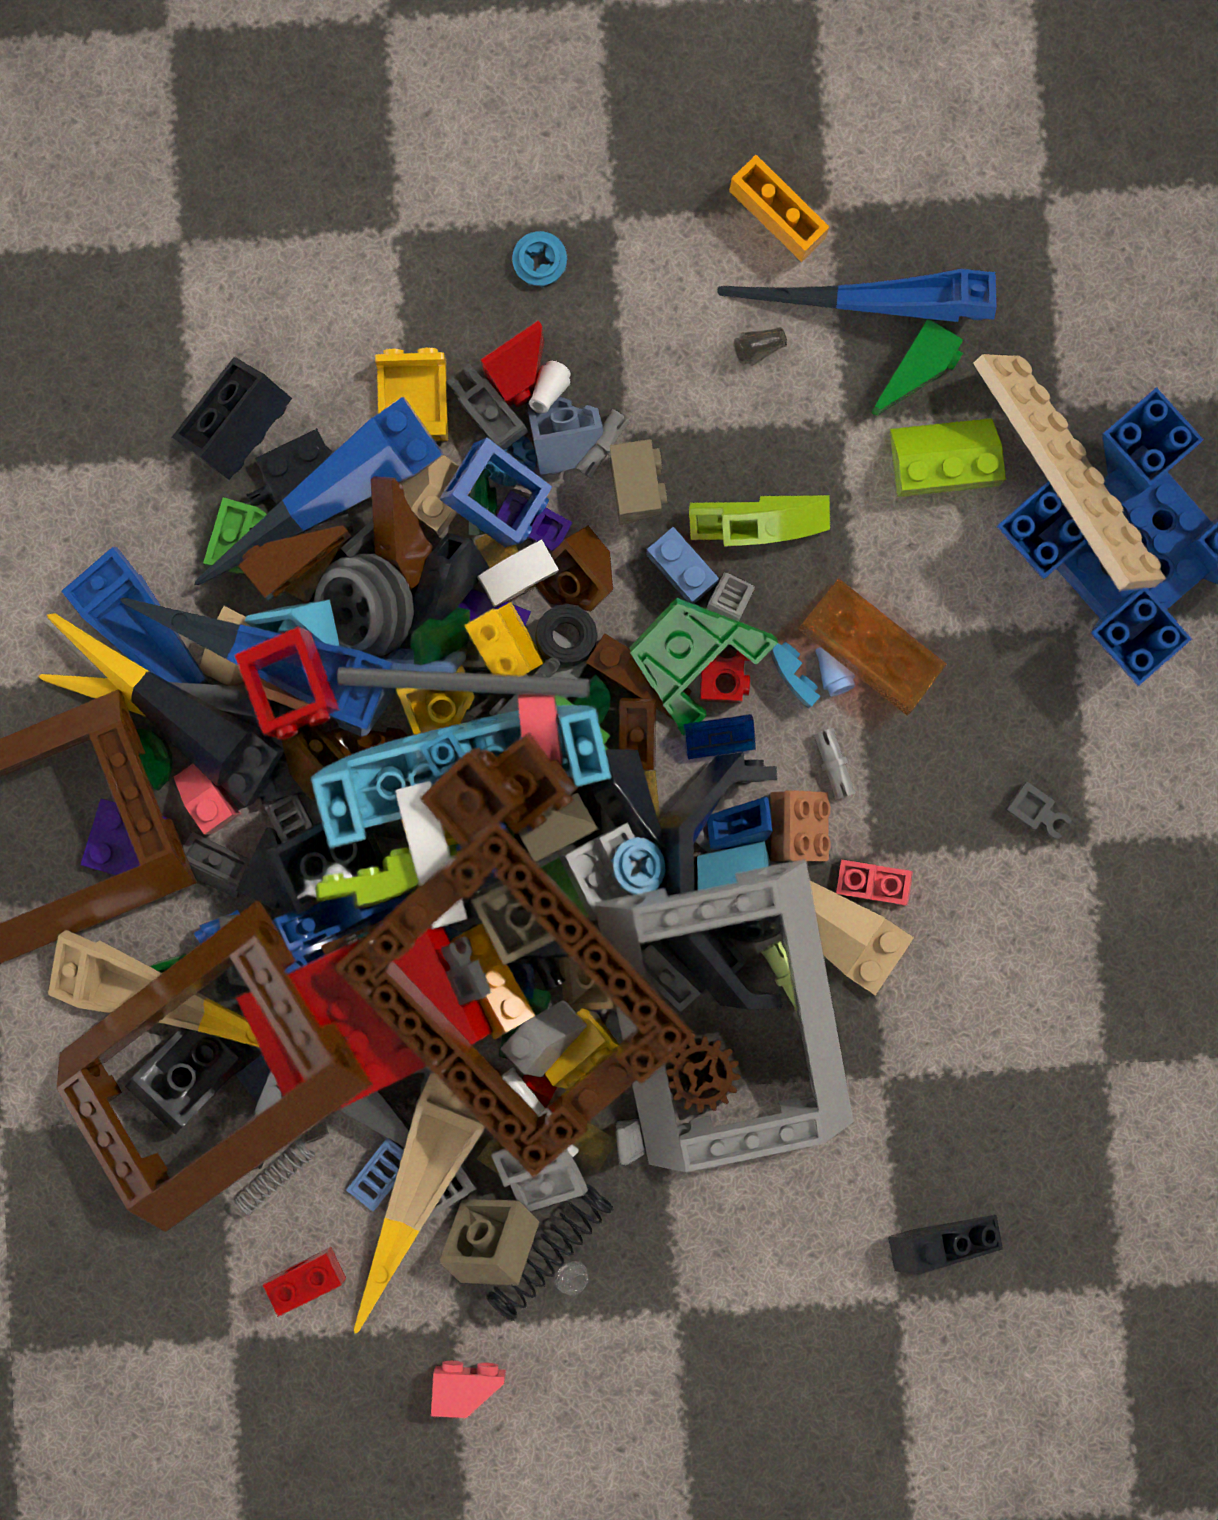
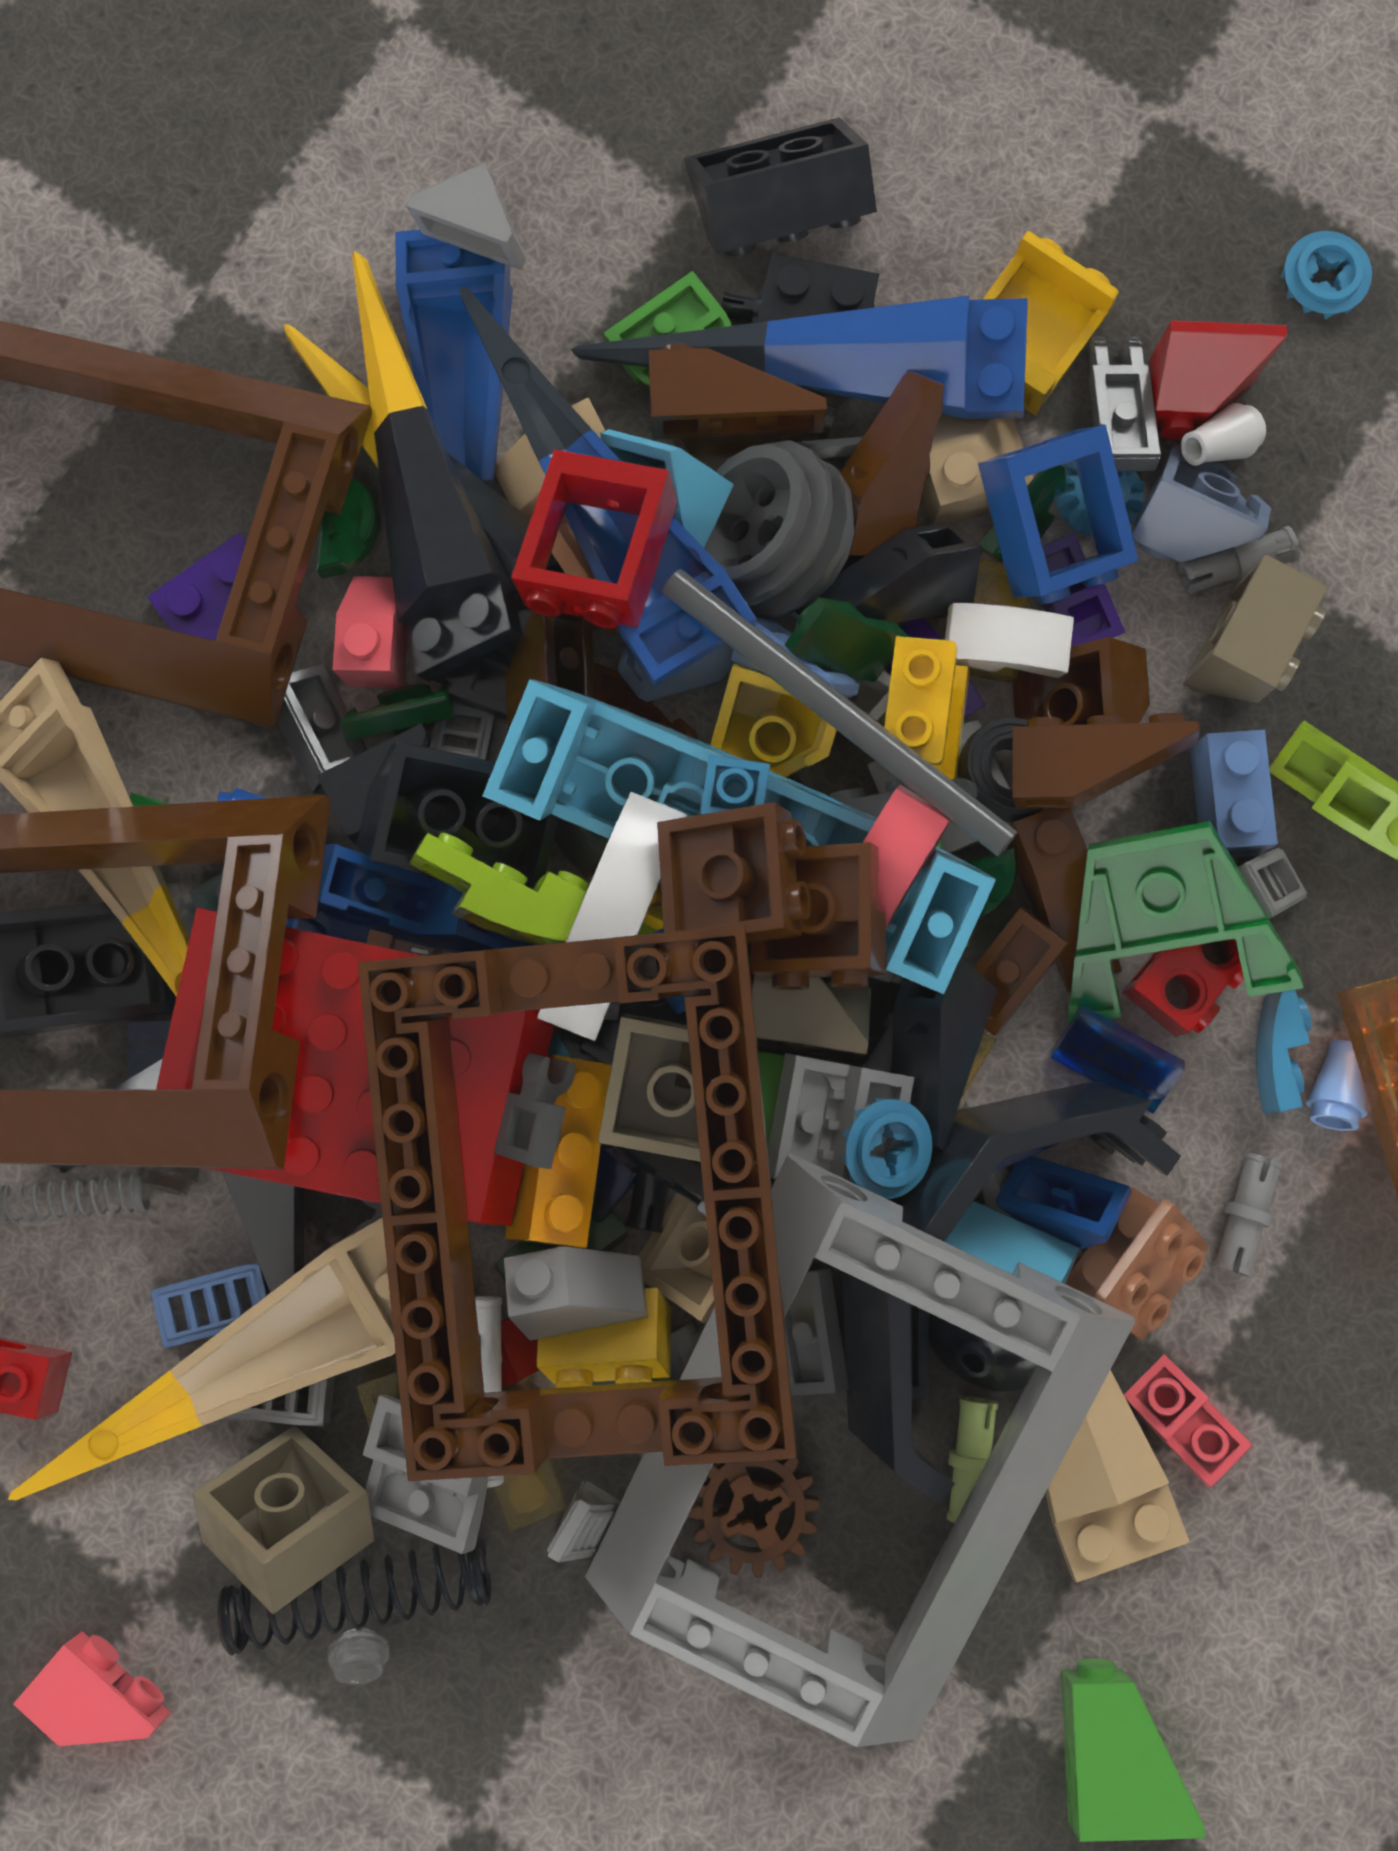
camera: 35 degrees right, 5 degrees down
(96, 558) = (469, 215): none -> light grey slope
(249, 828) = (398, 712): none -> dark green plate
(595, 615) = (1076, 763): none -> reddish brown slope
(950, 1060) = (1117, 1762): none -> bright green slope

